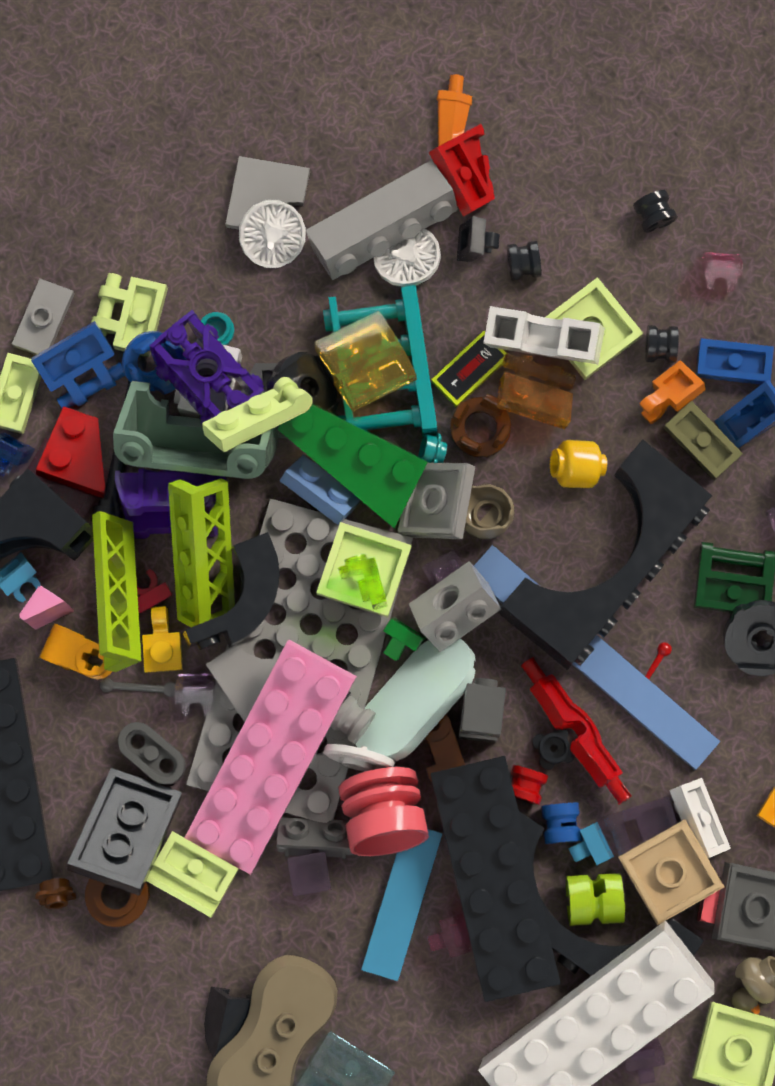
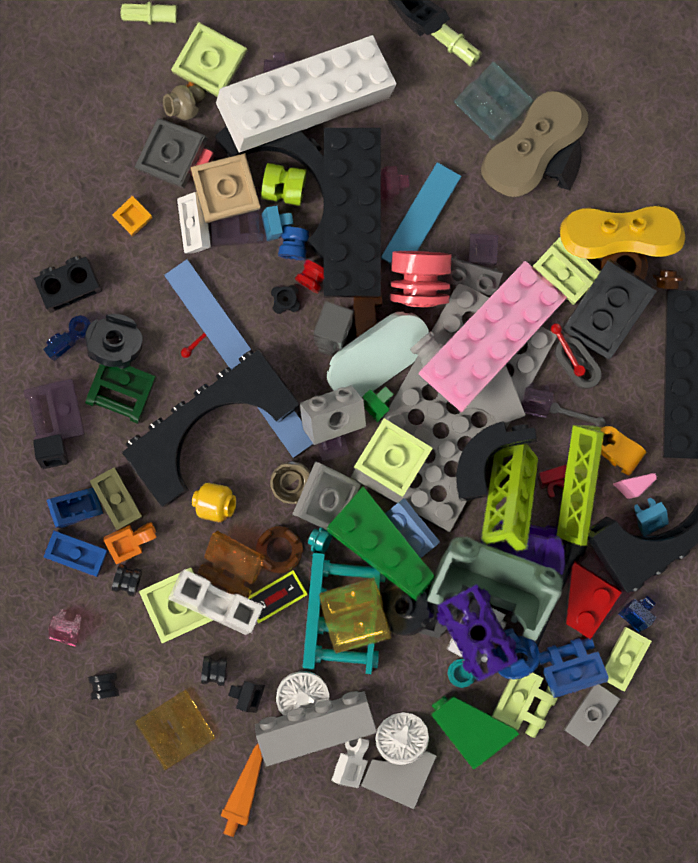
camera: 170 degrees left, 5 degrees up
(148, 742) = (579, 370): none -> red hinge
(158, 932) = (600, 233): none -> yellow plate
(161, 649) = (553, 439): yellow plate -> none
(189, 263) = (471, 730): none -> green slope
(257, 415) = (448, 584): yellowish green plate -> none
(326, 187) = (351, 765): none -> white plate
(357, 758) = (429, 317): white wheel -> none
(371, 586) = (391, 440): clear neon green bracket -> none
(465, 169) = (241, 754): red wing -> none
(544, 195) = (186, 723): none -> clear yellow slope
(588, 744) = (260, 293): red piece -> none

